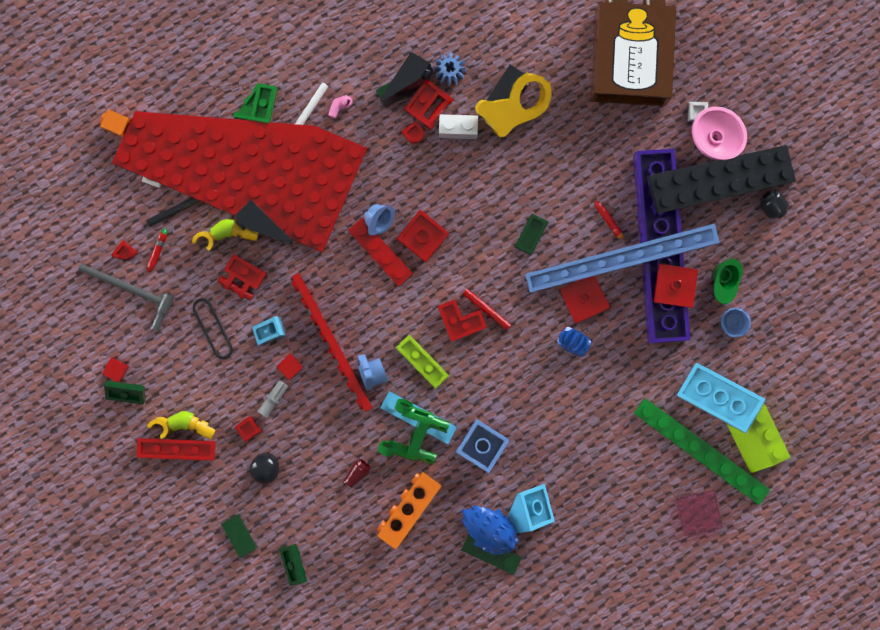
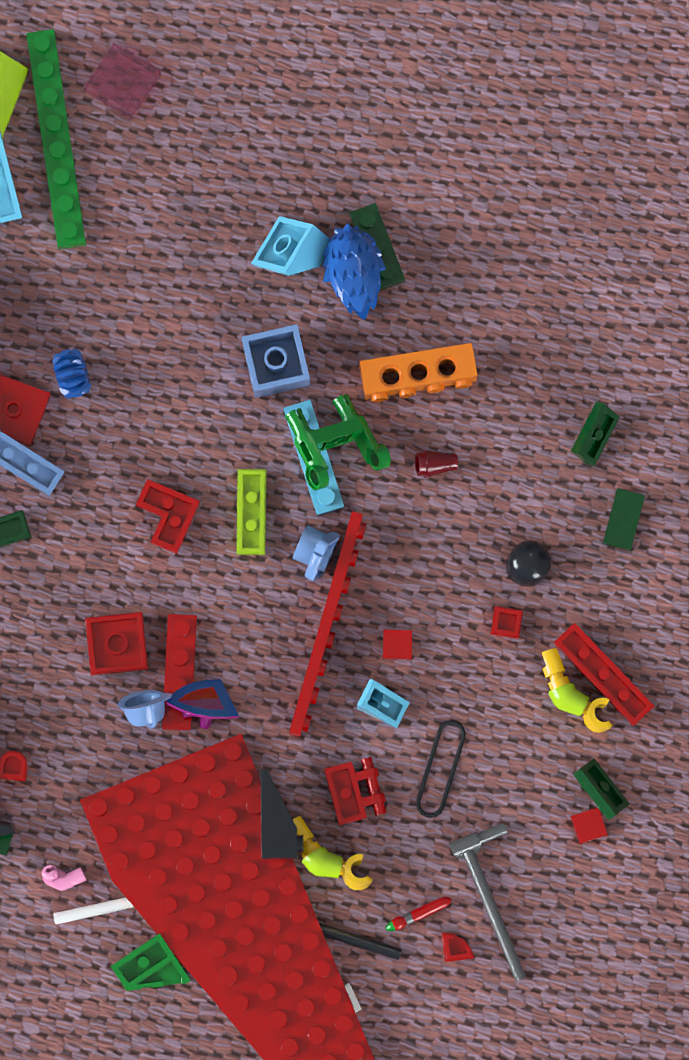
camera: 135 degrees left, 5 degrees down
(273, 399) = (448, 627): light grey axle -> none
(352, 248) = (204, 700): none -> shield
(485, 308) = (127, 500): red bar -> none

